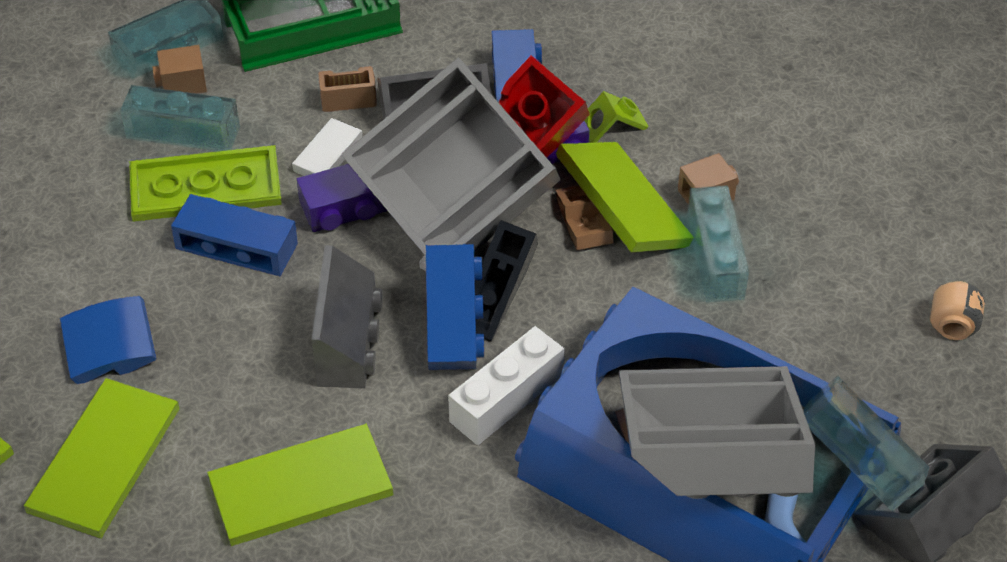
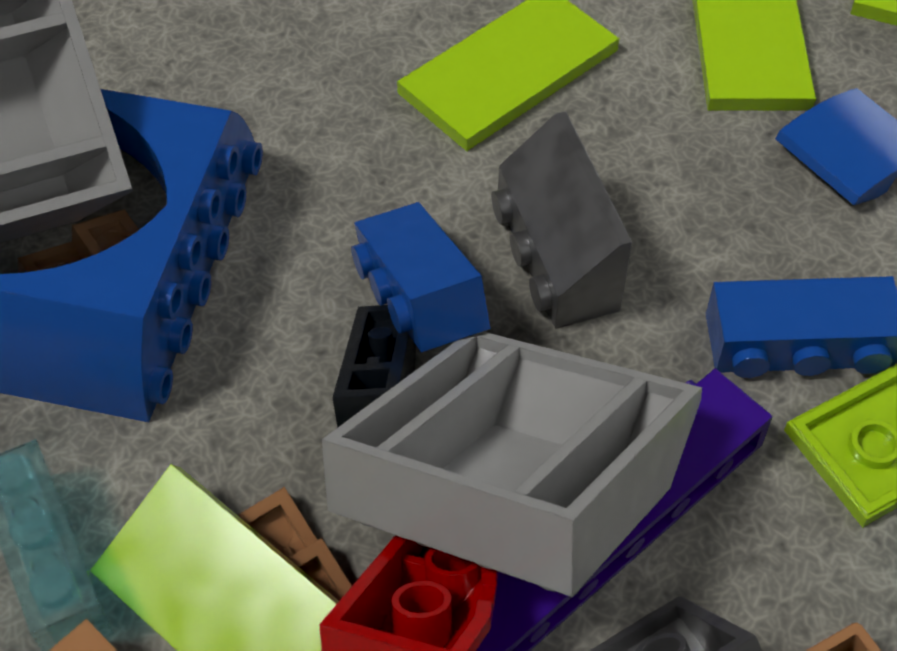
camera: 160 degrees right, 5 degrees up
(327, 148) = (778, 549): white tile -> none
(505, 385) = (302, 222): white brick -> none

